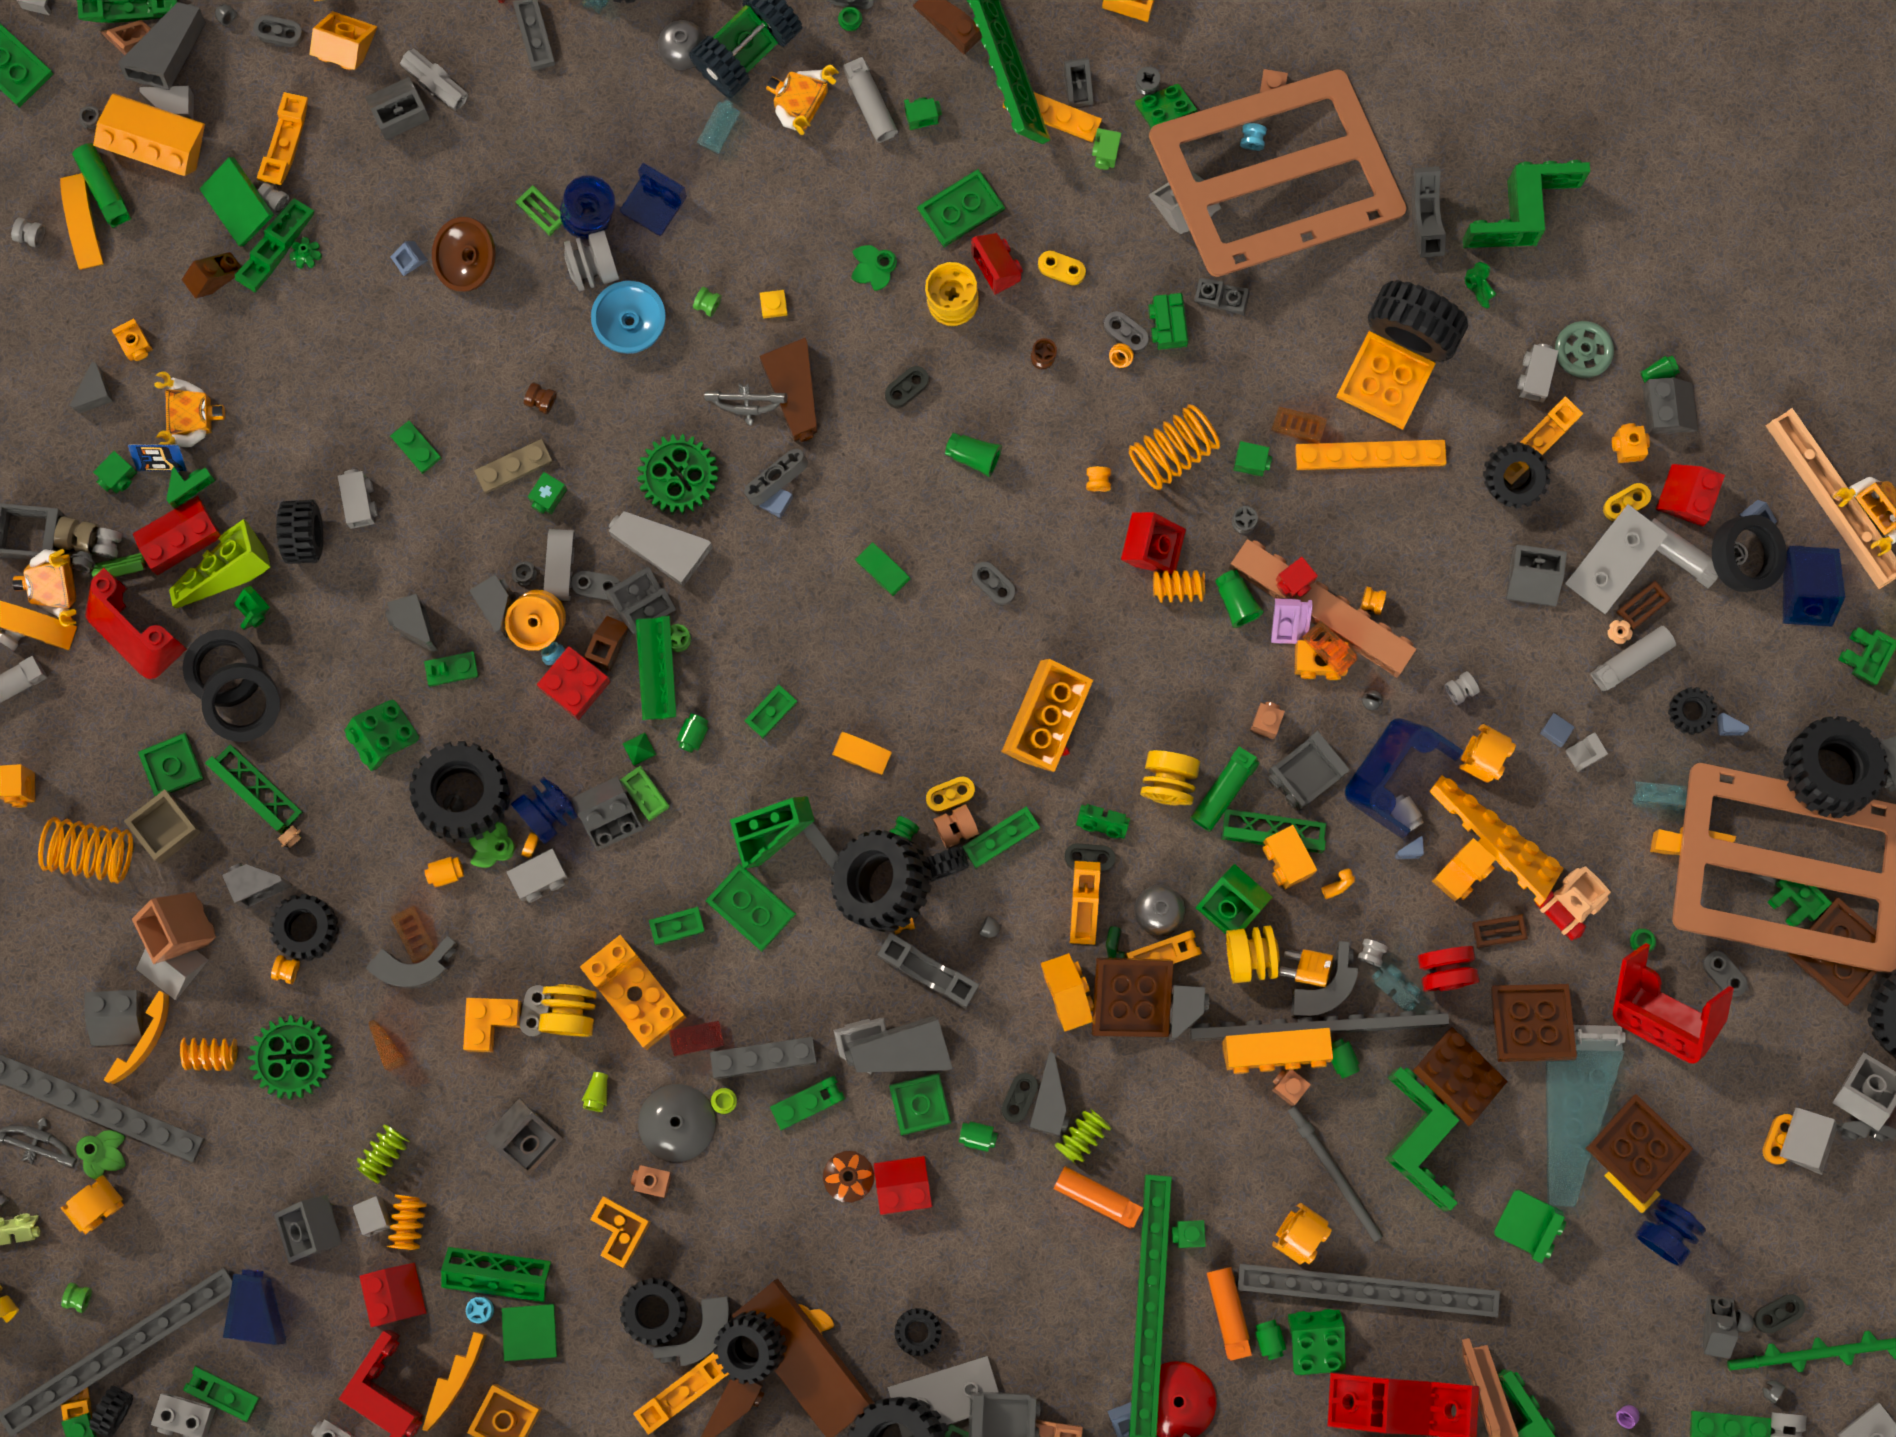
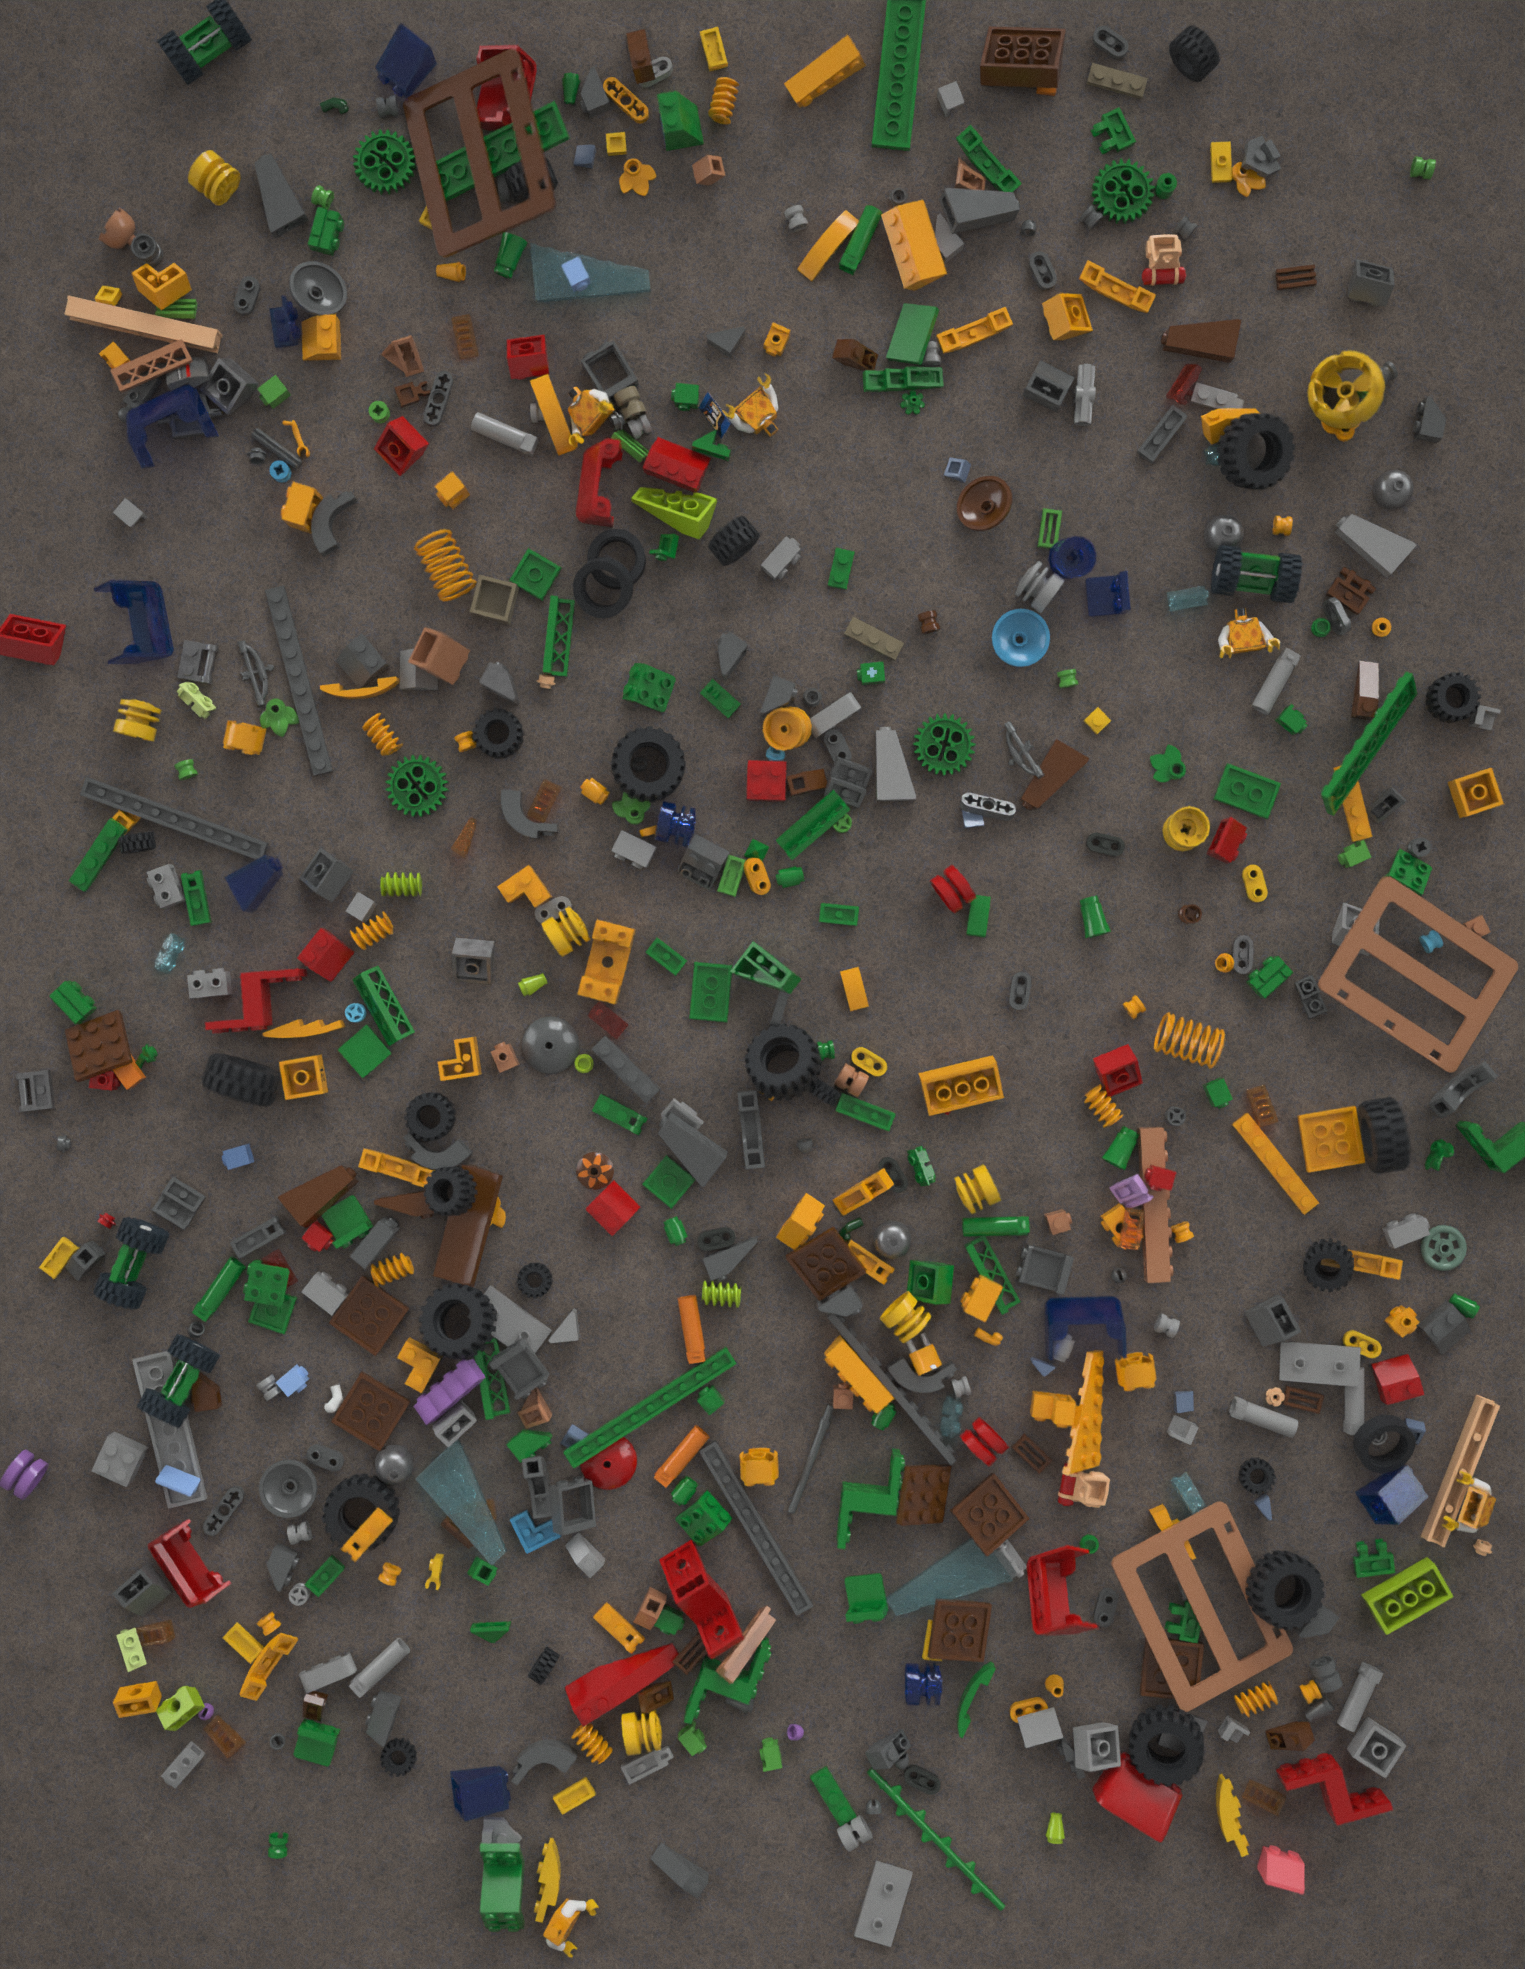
camera: 55 degrees right, 10 degrees up
(665, 768) = (756, 877): none -> light orange plate
(833, 572) = (955, 887): none -> red wheel
(998, 1335) = (567, 1330): none -> light grey slope
(1708, 1159) = (982, 1676): none -> green slope
(1767, 1090) = (1055, 1685): none -> light orange cone

